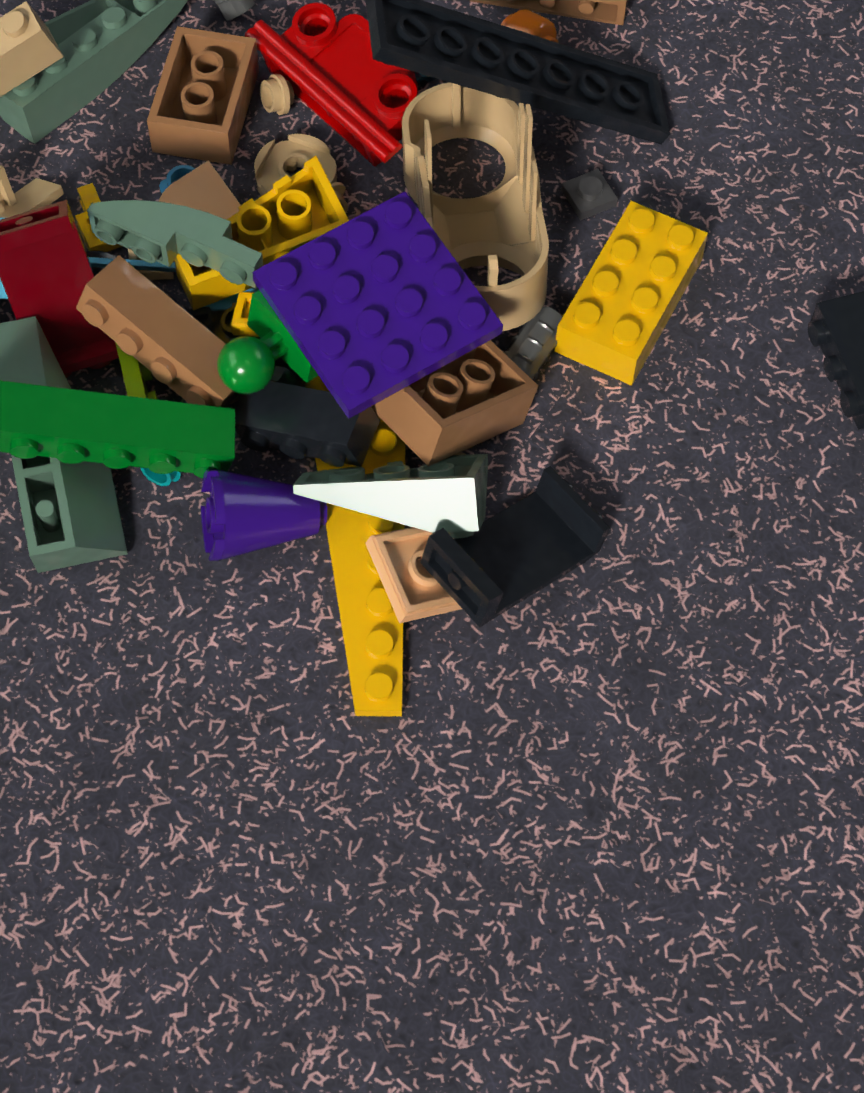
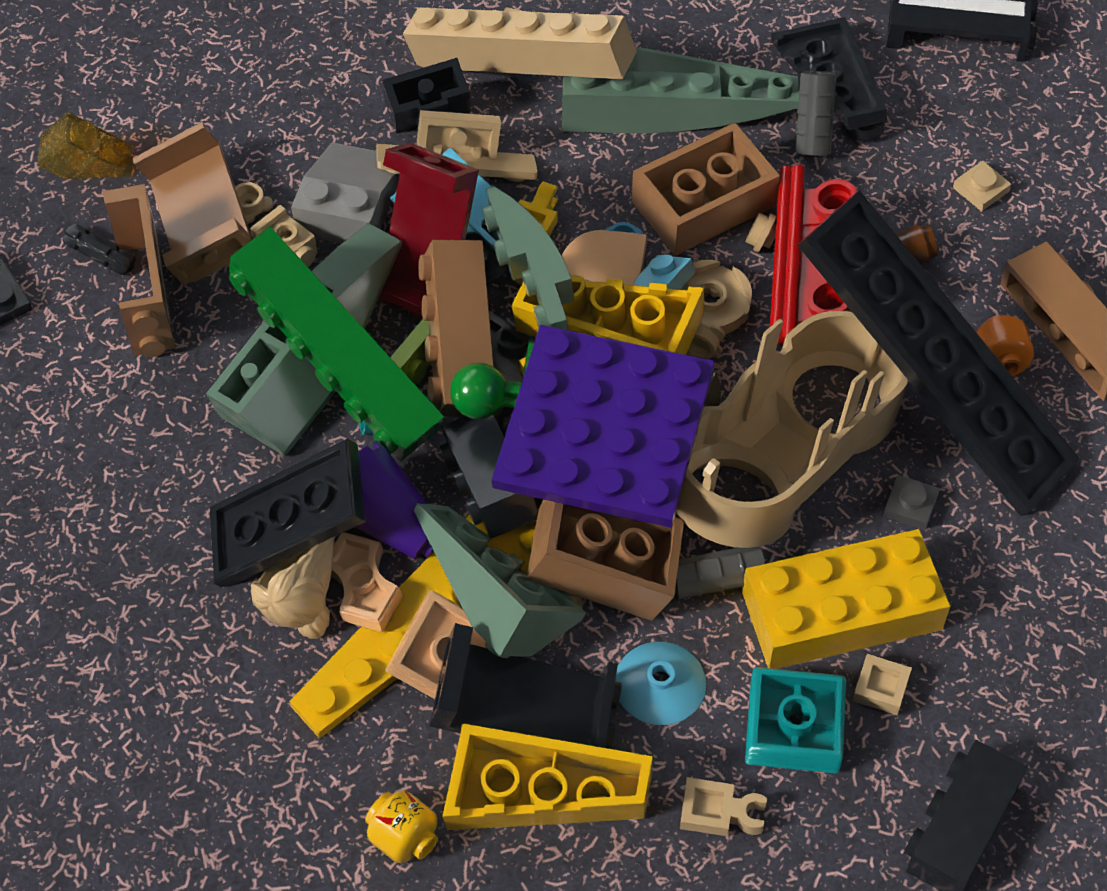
camera: 50 degrees right, 5 degrees down
(202, 583) = (287, 514): none -> black tile
(252, 177) = (667, 270): none -> medium azure plate
(255, 618) = (296, 590): none -> tan hair
(318, 586) = (368, 596): none -> light nougat tile
(538, 711) = (402, 826): none -> yellow head
(575, 602) = (541, 781): none -> yellow wedge
(586, 473) = (656, 700): none -> medium azure dish
(671, 392) = (778, 742): none -> teal brick
(712, 502) = (711, 808): none -> tan plate
(713, 326) = (882, 684): none -> tan plate

